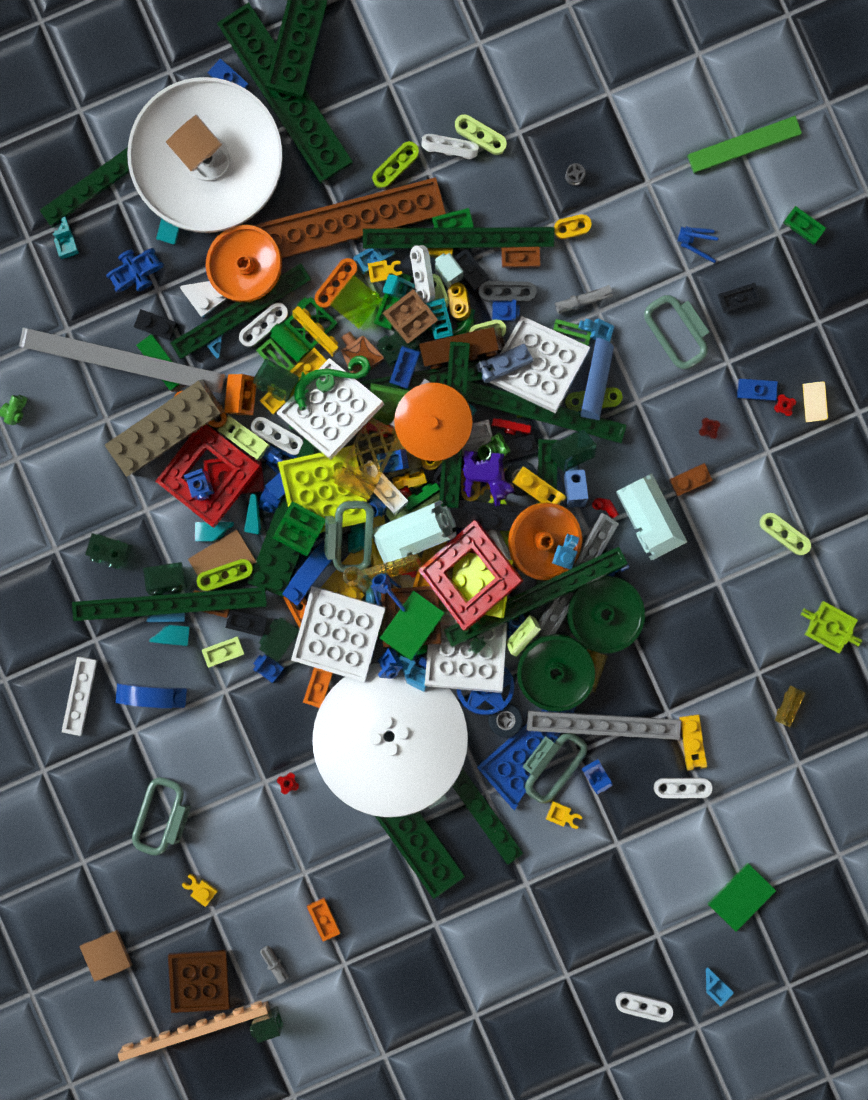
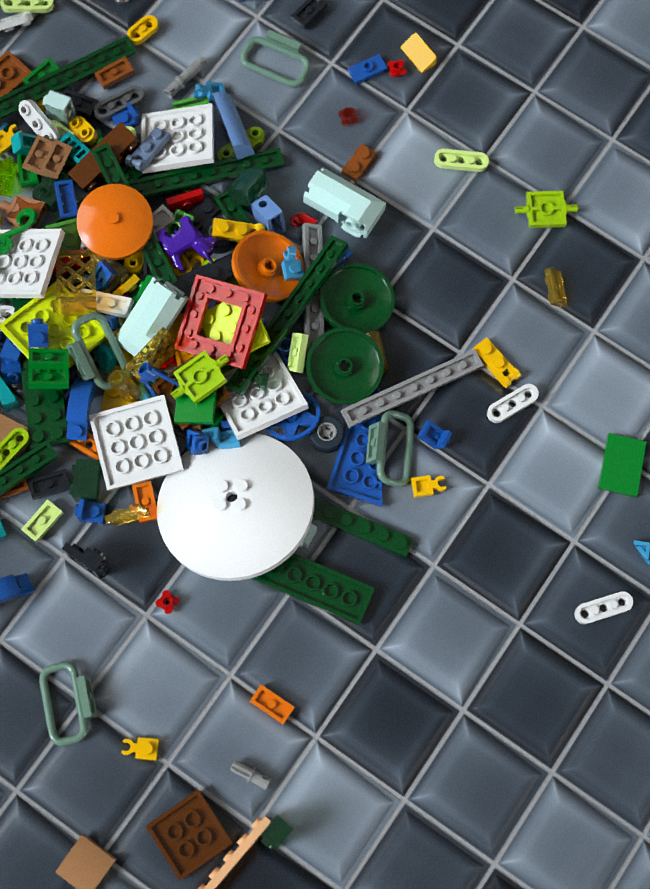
camera: 35 degrees left, 15 degrees down
(244, 717) = (91, 560): none -> black plate
(300, 694) = (123, 516): none -> clear yellow plate
(307, 490) = (37, 333): none -> blue bracket
(423, 615) = (200, 377): none -> lime plate

